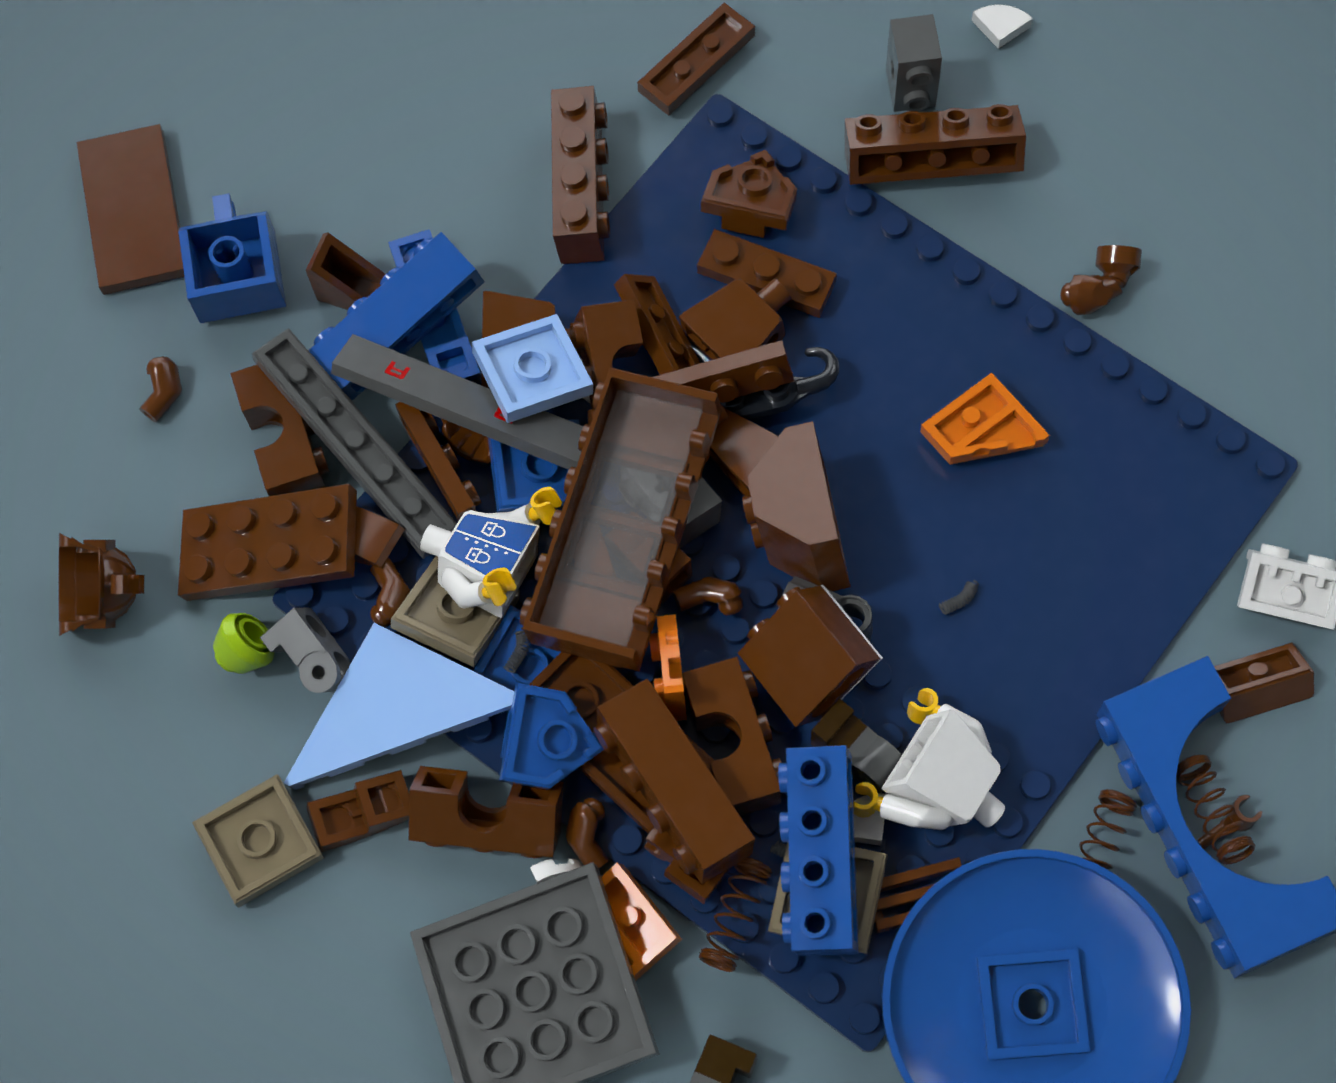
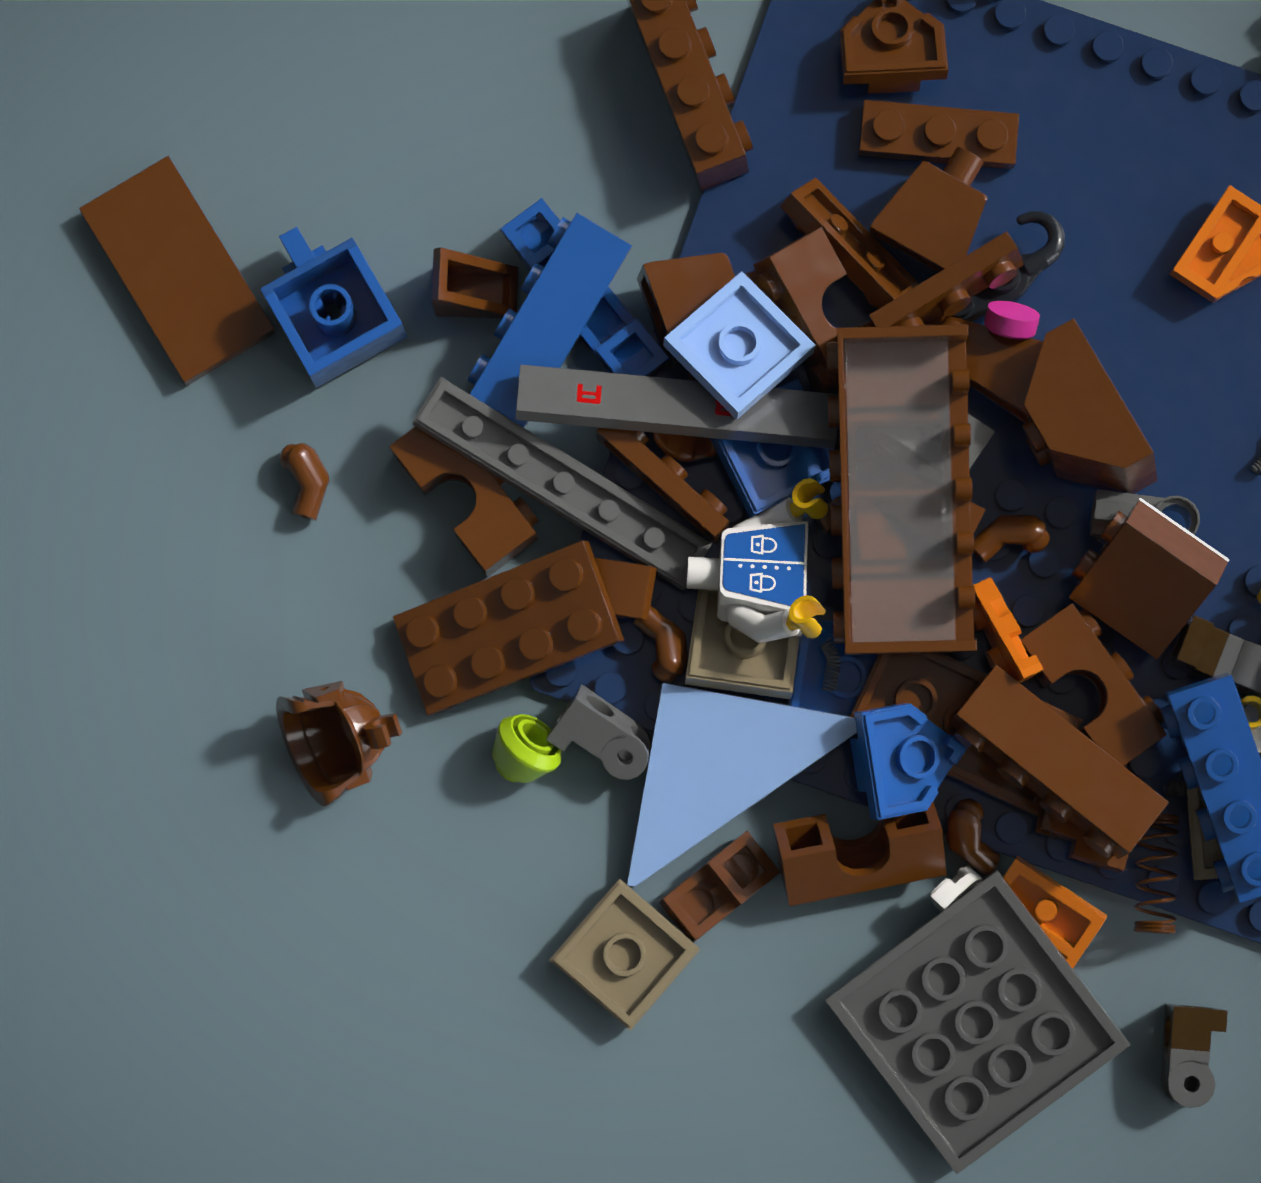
camera: 25 degrees left, 15 degrees up
(767, 418) = (1011, 320): none -> dark pink tile

